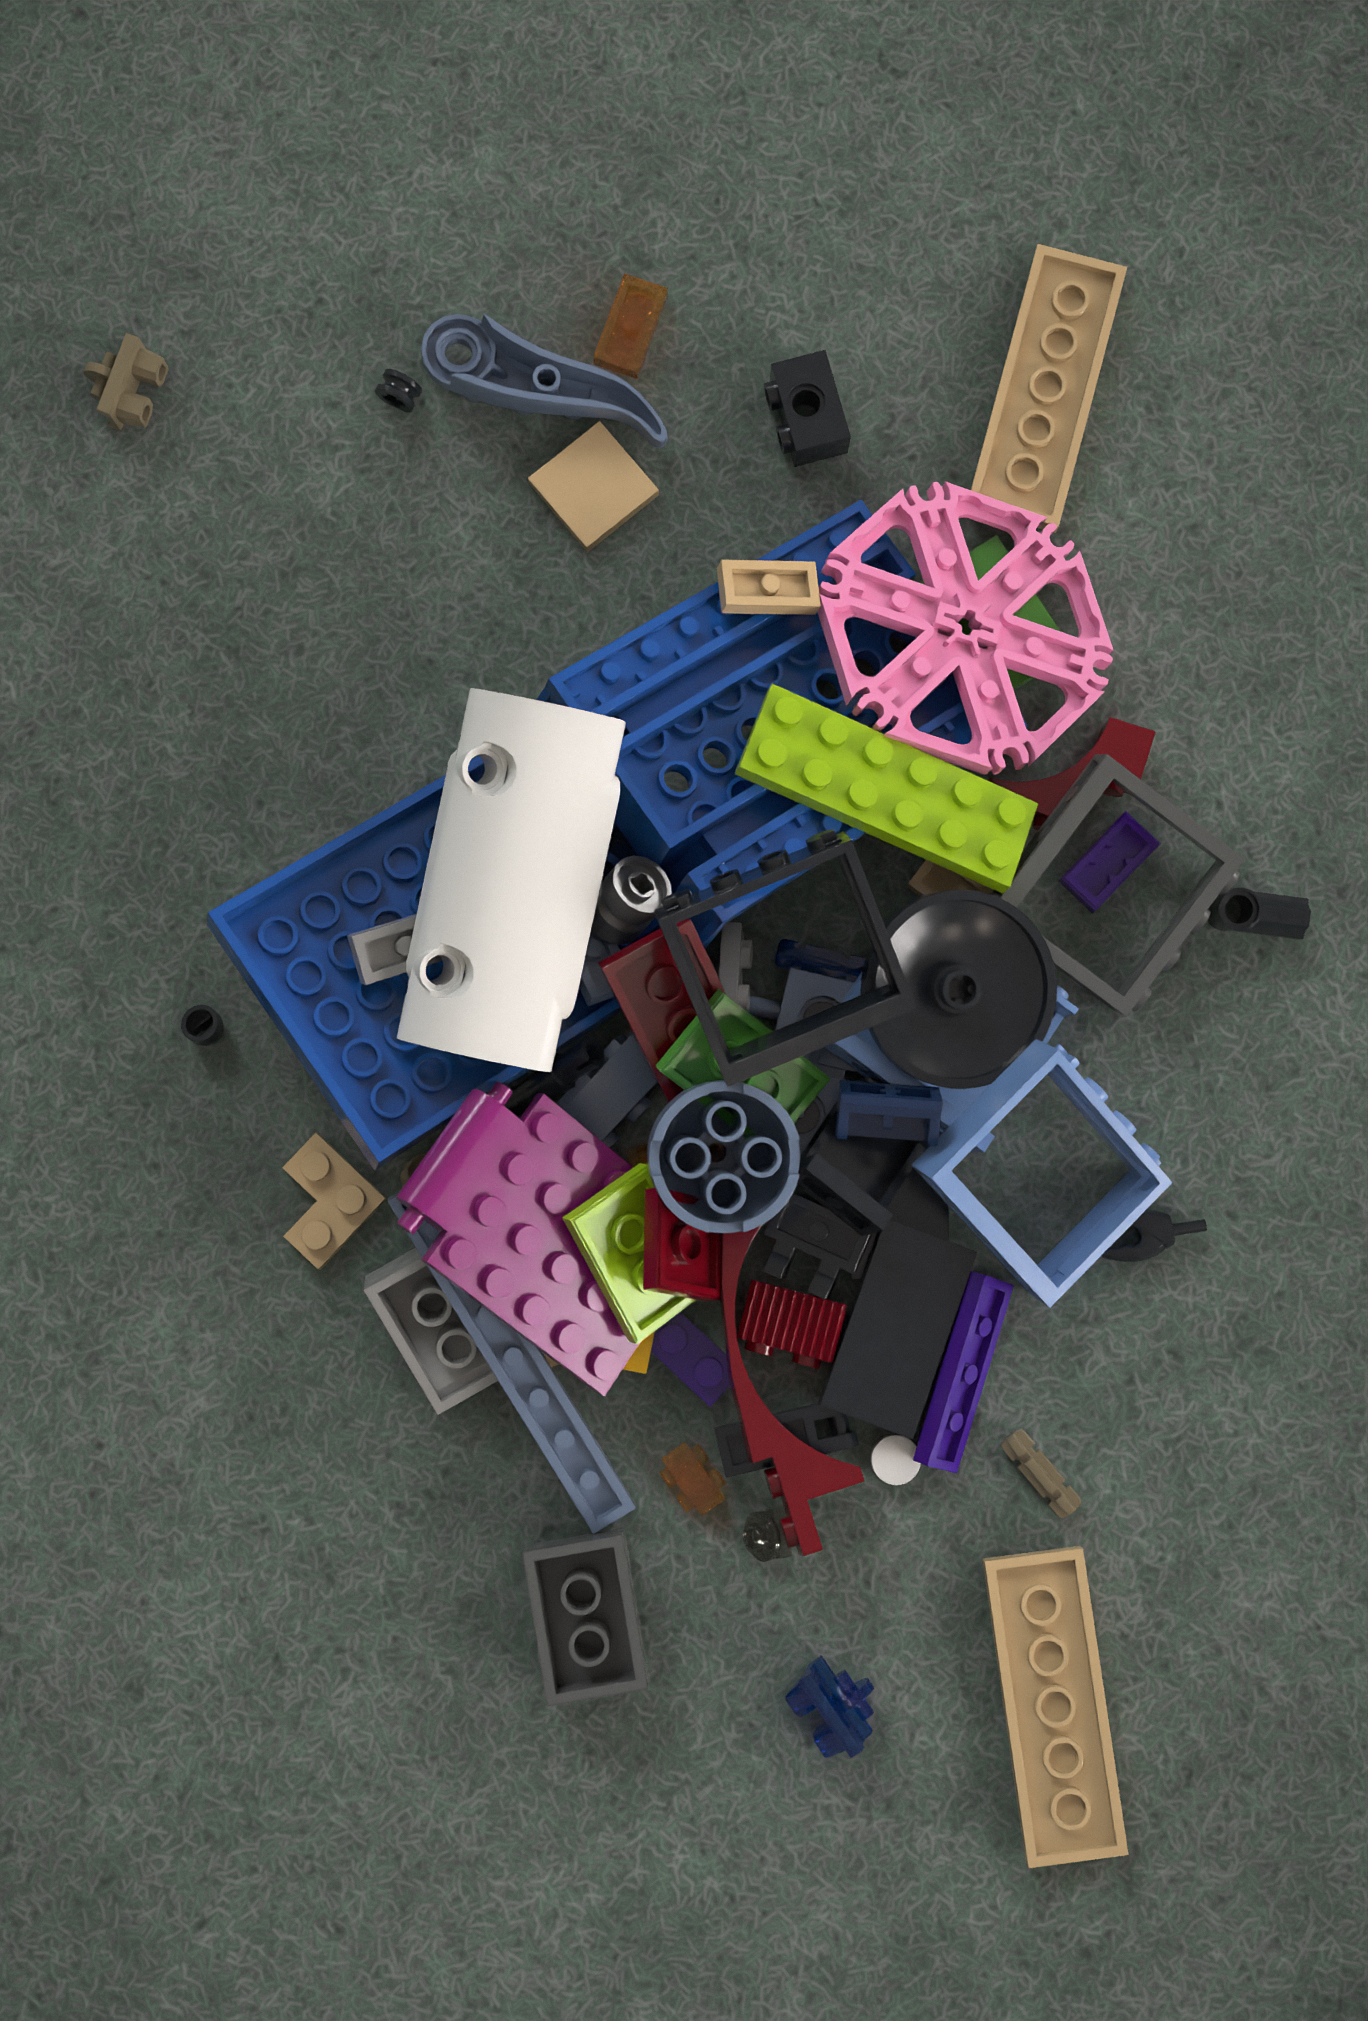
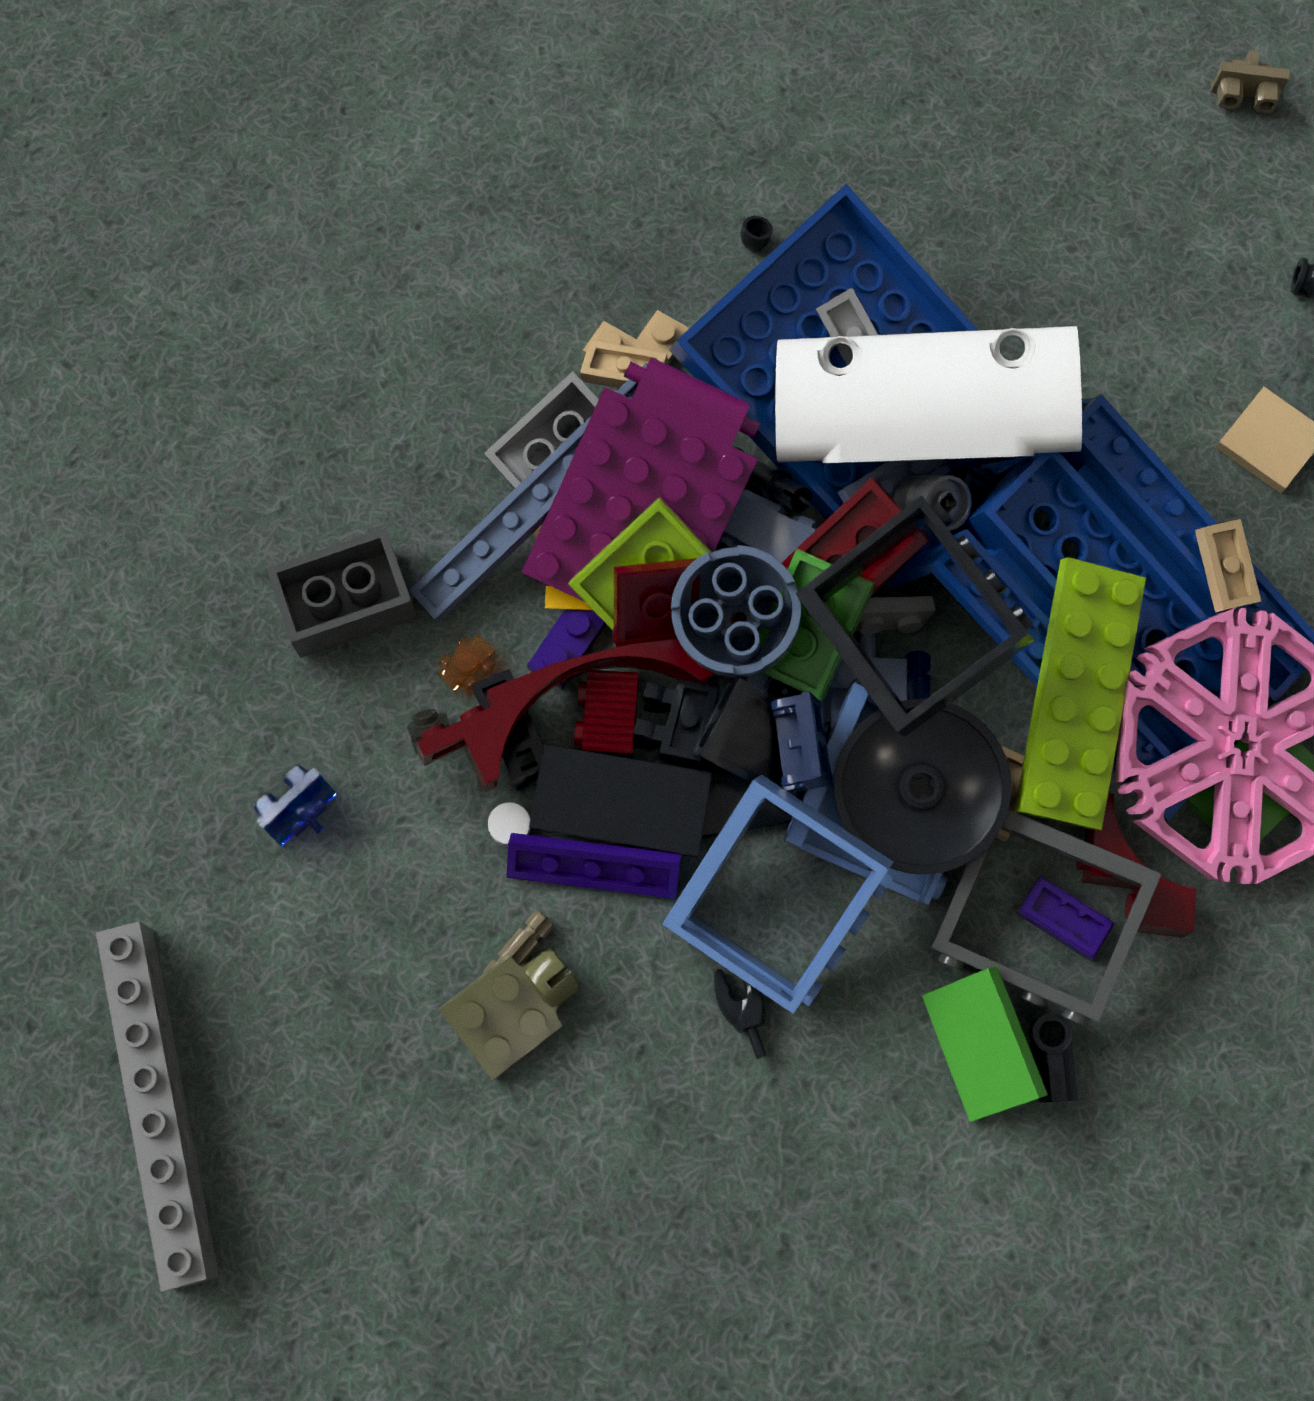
camera: 75 degrees right, 10 degrees down
(360, 1225) = (608, 362): none -> tan plate
(1054, 1707) = (321, 993): tan plate -> none
(1110, 1494) = (510, 1009): none -> olive plate
(1153, 1913) = (156, 1107): none -> light grey brick
(1237, 984) = (984, 1044): none -> bright green tile

